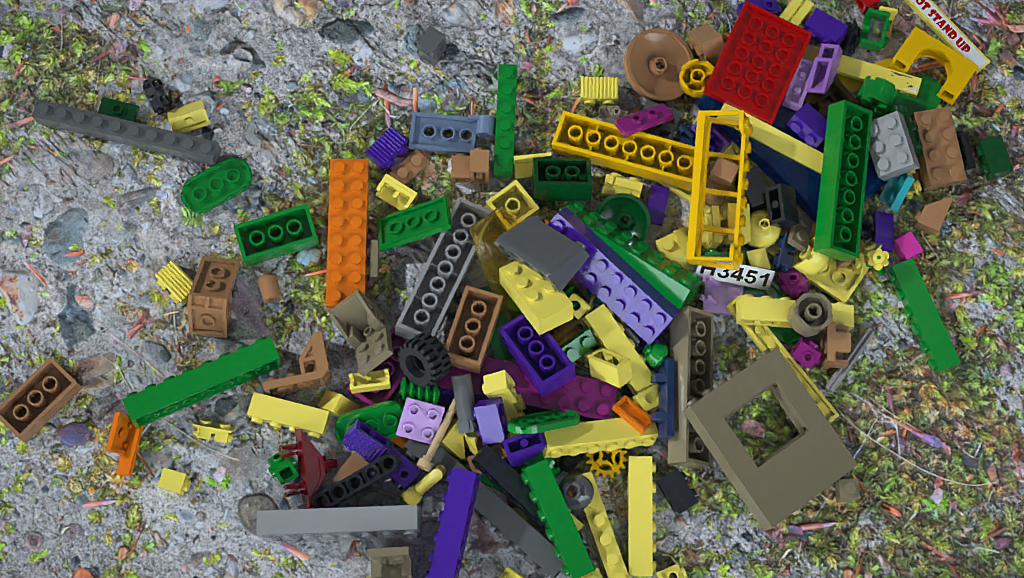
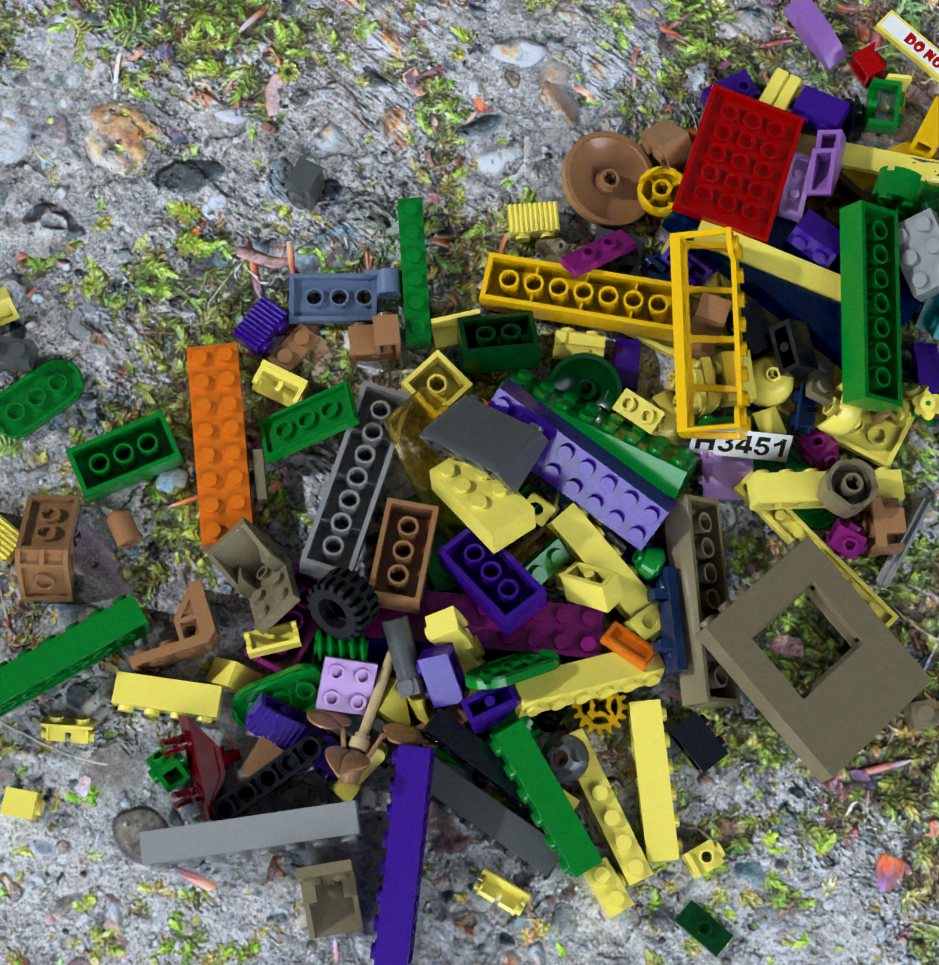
camera: 10 degrees left, 0 degrees up
(413, 476) = (349, 763): none -> medium nougat plant
(661, 241) = (640, 411): none -> light yellow hinge

